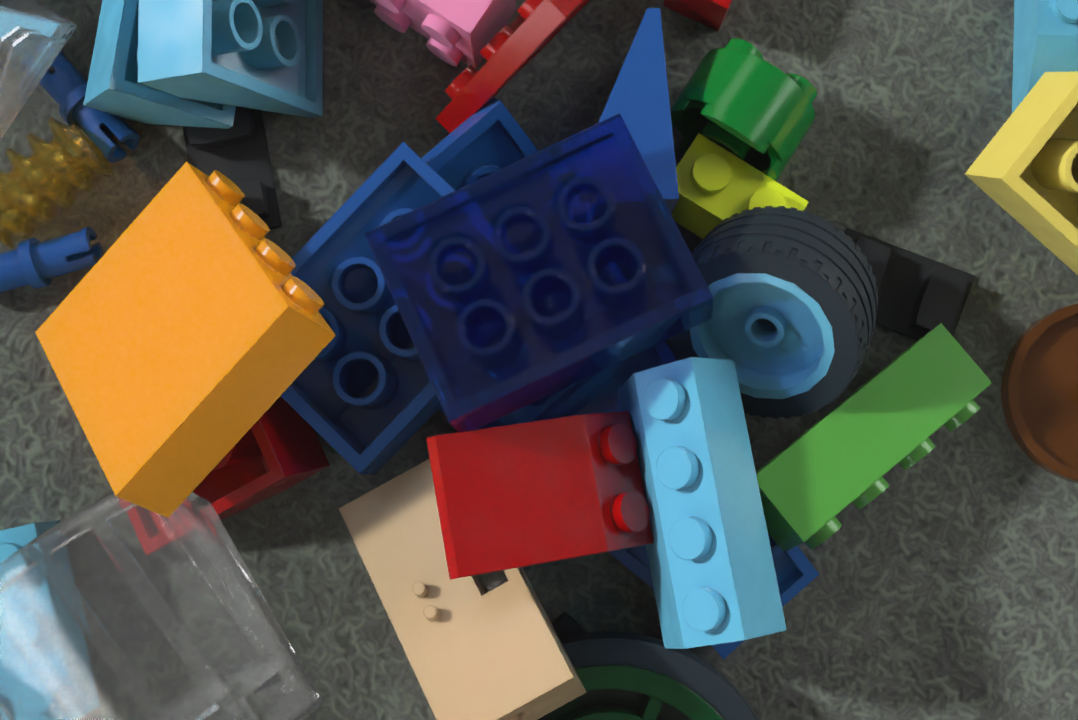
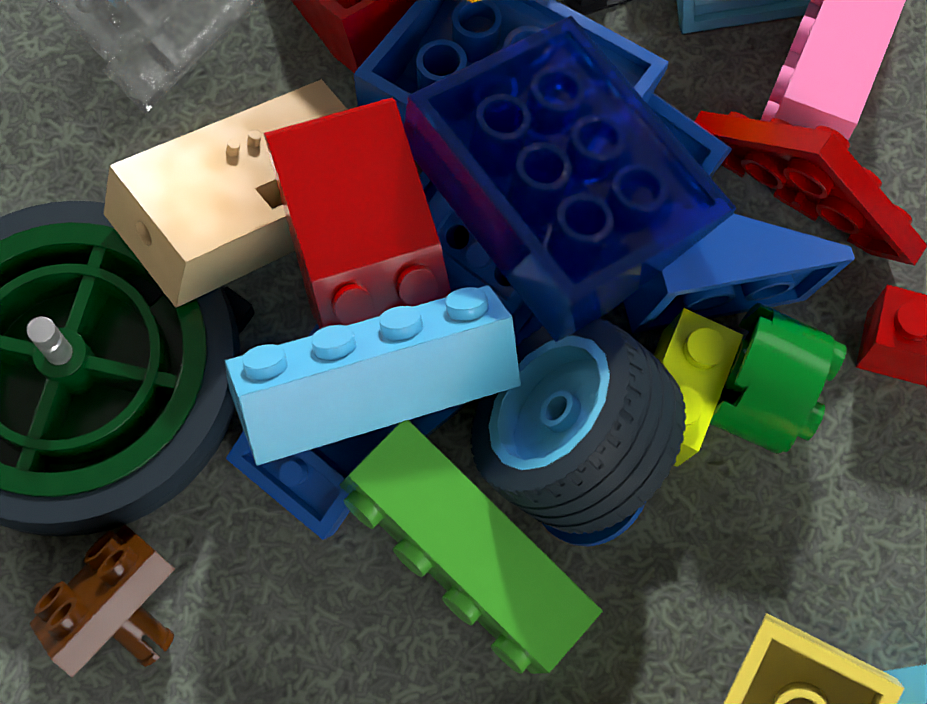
camera: 80 degrees right, 15 degrees down
(913, 289) = (635, 588): black piece -> none

